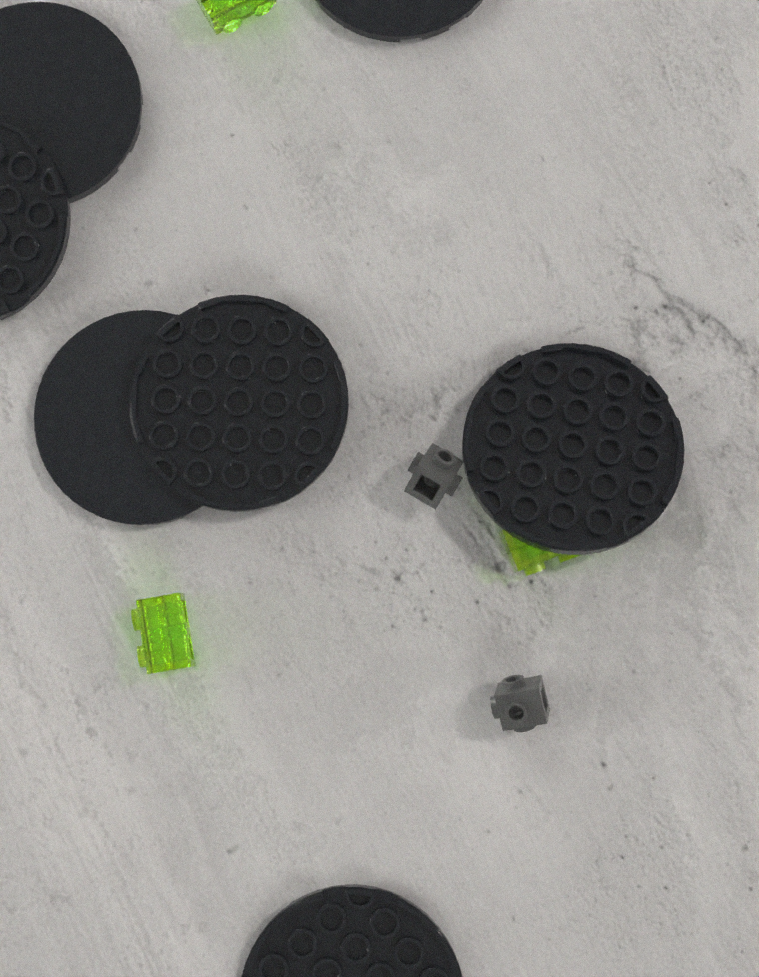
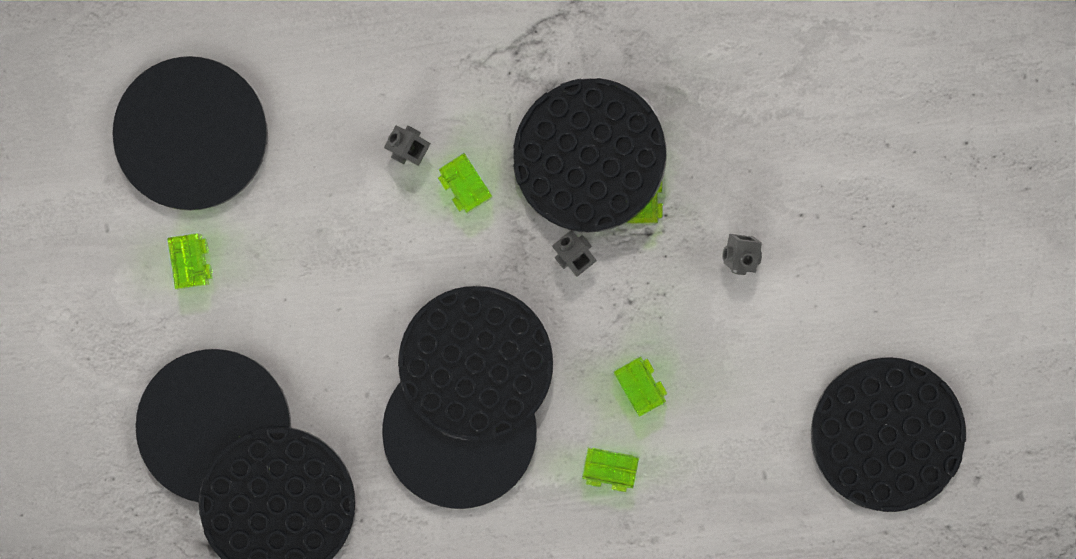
camera: 75 degrees left, 5 degrees up
(290, 632) = (640, 386): none -> clear neon green brick
(469, 301) = (465, 184): none -> clear neon green brick
(490, 206) = (407, 145): none -> dark grey brick

